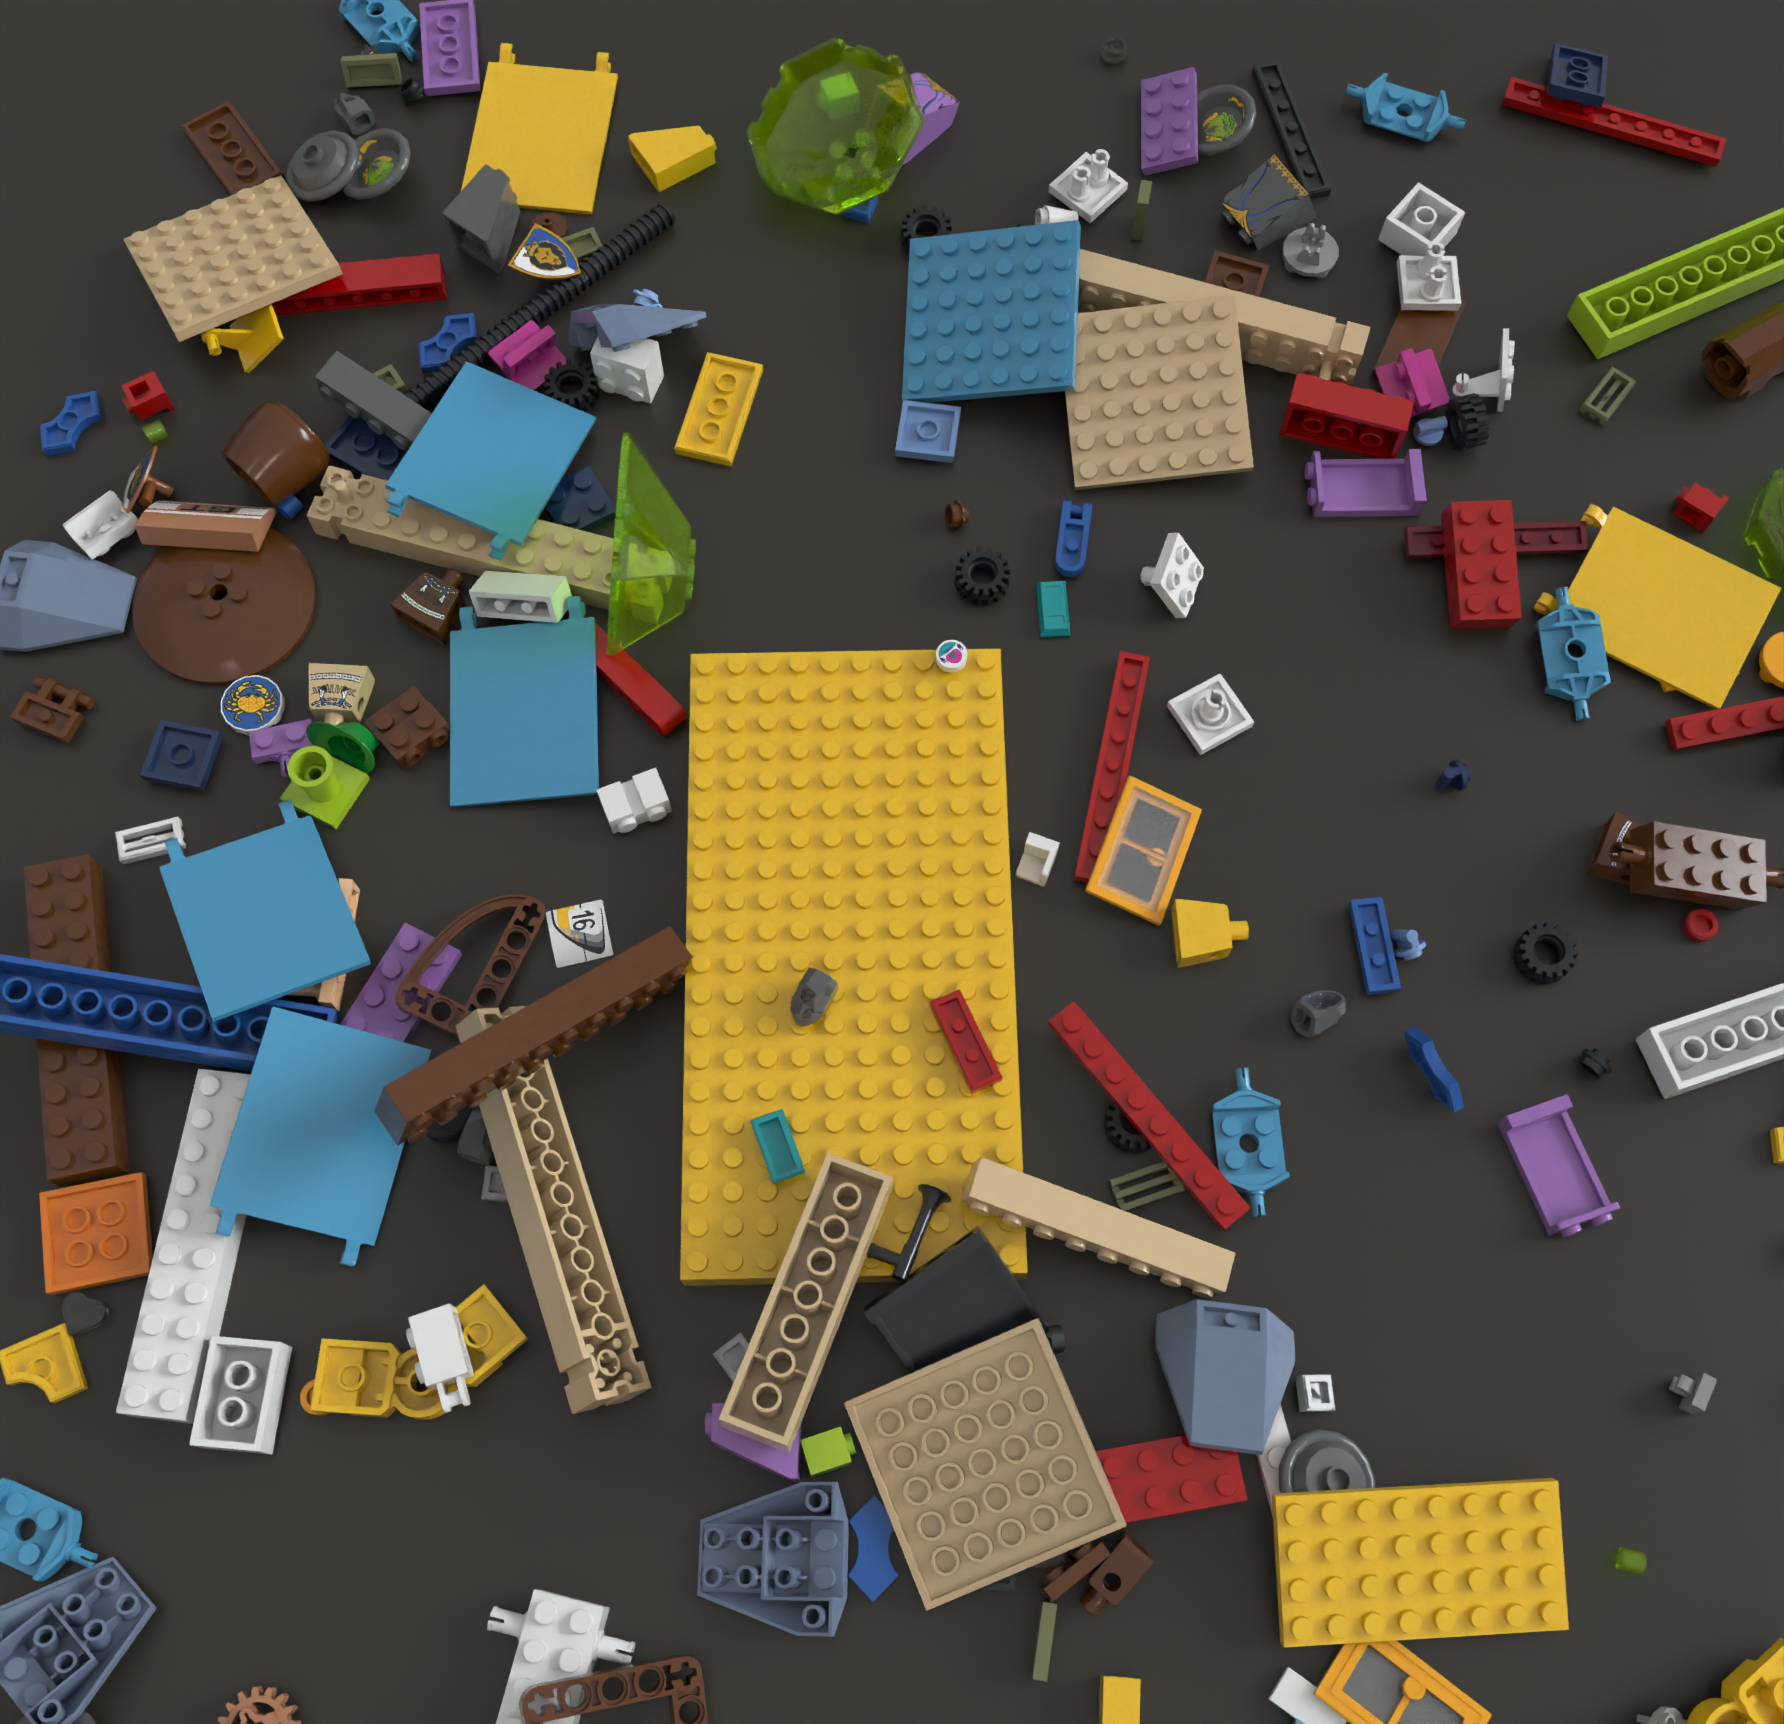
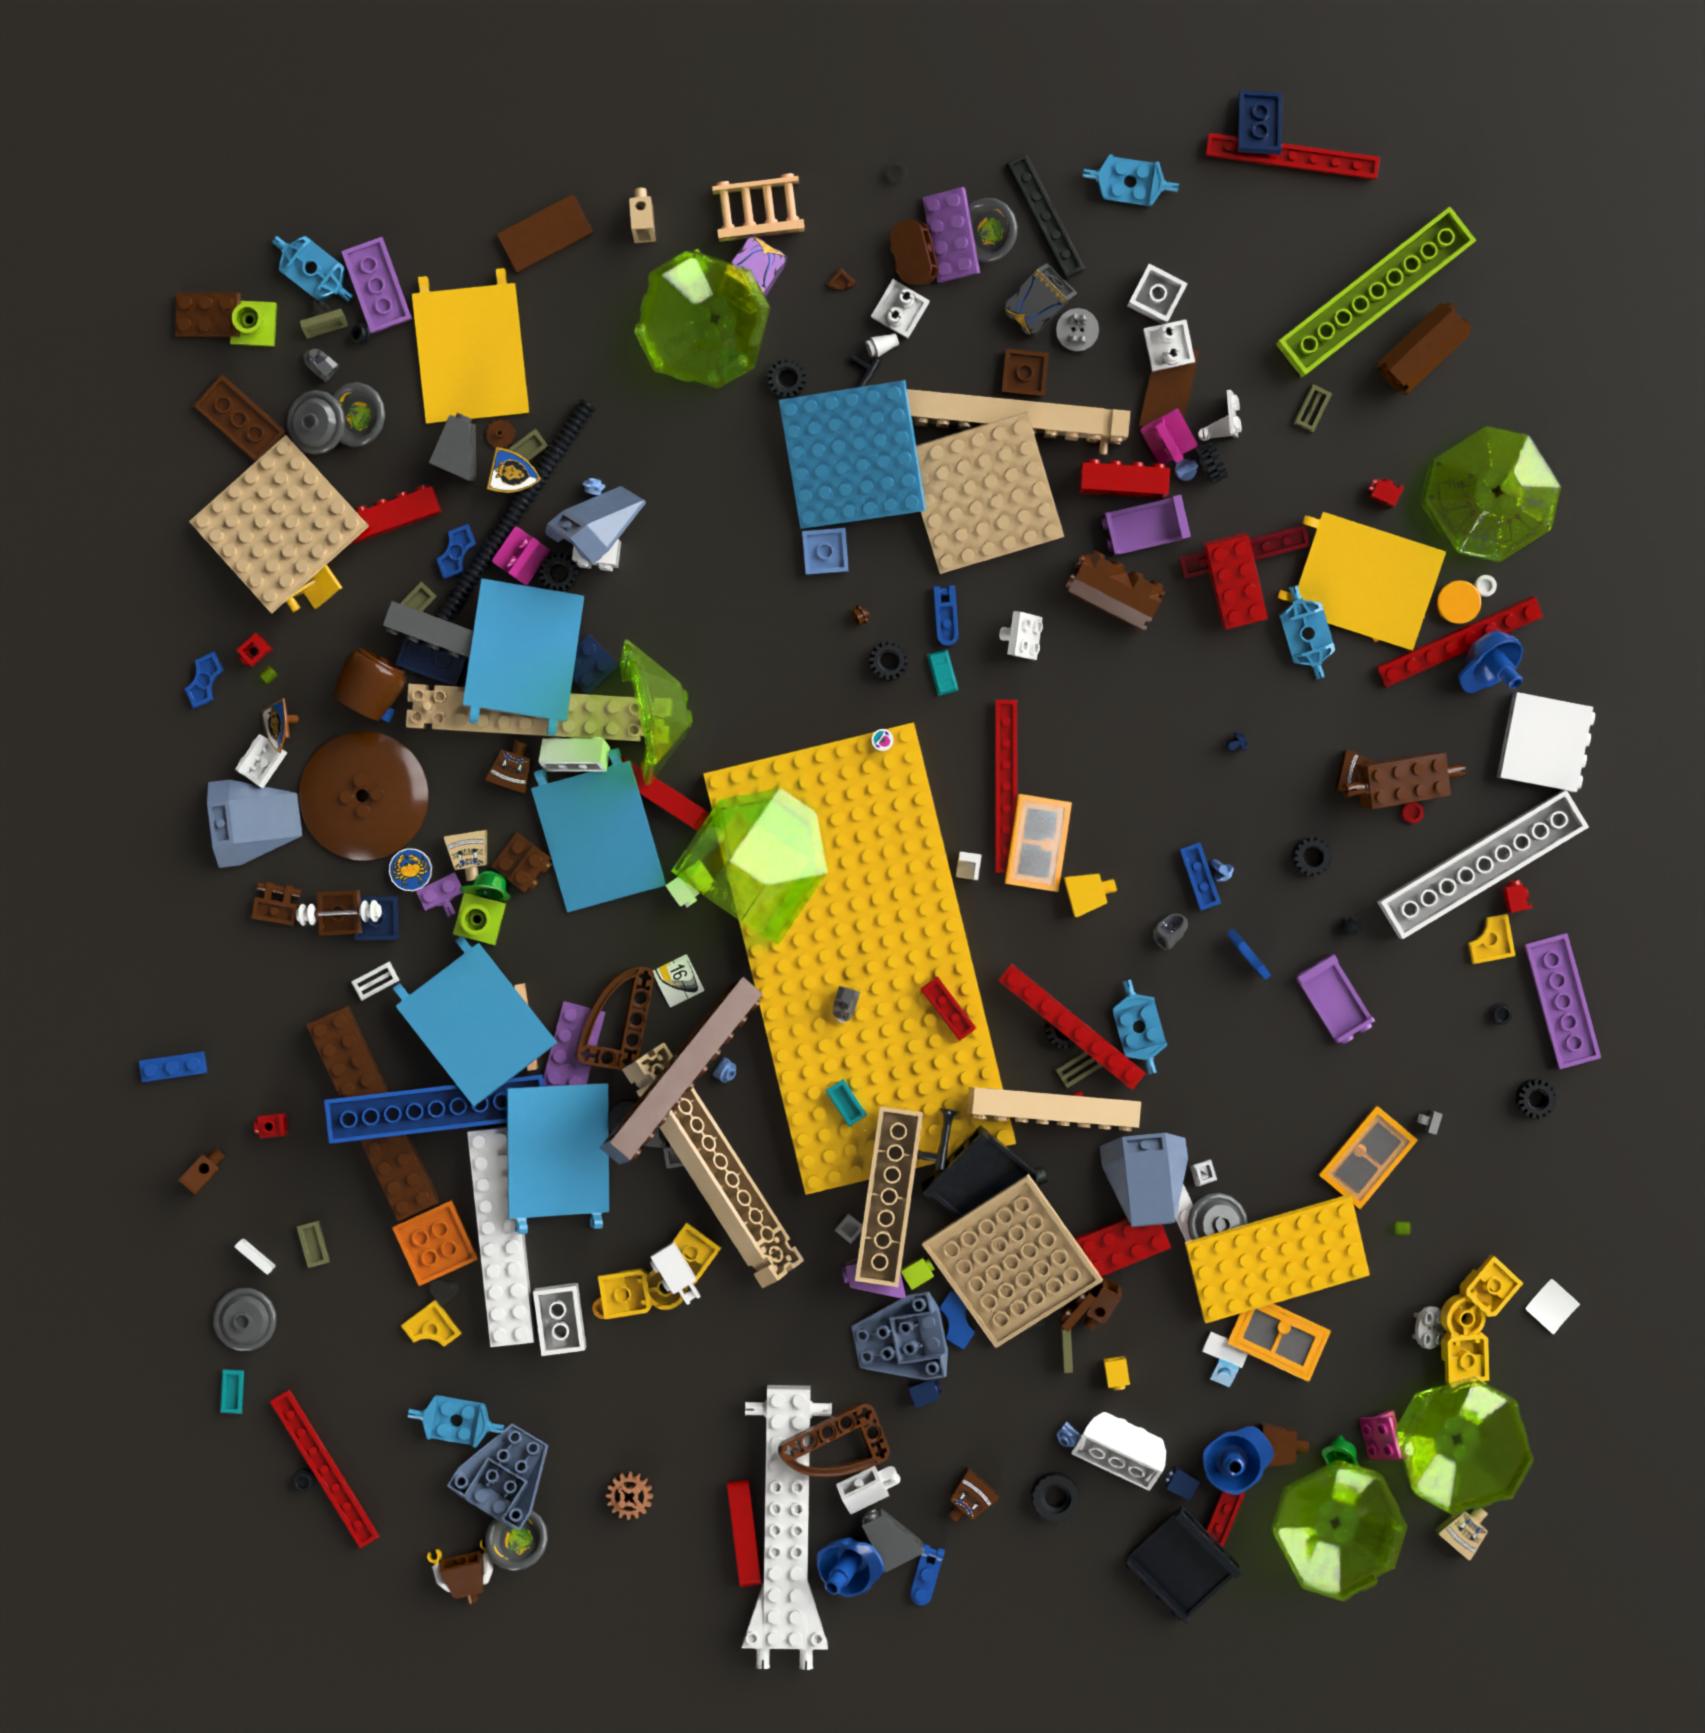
camera: 10 degrees left, 20 degrees up
(129, 731) = (339, 912): none -> reddish brown plate
(205, 525) = (334, 743): nougat slope -> none
(236, 37) = (206, 314): none -> reddish brown plate
(285, 57) = (262, 330): none -> lime plant
(611, 1073) = (725, 1070): none -> medium blue plate
(670, 35) = (545, 233): none -> reddish brown tile
(672, 154) = (578, 350): yellow slope -> none
(718, 409) = (669, 563): yellow tile -> none
(740, 774) = (757, 859): none -> clear neon green windscreen
(789, 25) = (642, 217): none -> tan torso
(793, 1660) = (925, 1392): none -> dark blue brick
(946, 74) = (771, 226): none -> light nougat fence
(1020, 149) = (841, 281): none -> reddish brown tile
(1119, 126) = (913, 252): none -> reddish brown brick
(1141, 210) = (945, 334): olive tile -> none
(1210, 714) = (1065, 732): white plate -> none
(1305, 540) = (1114, 590): none -> reddish brown brick
(1585, 1427) = (1368, 1156): none -> clear door

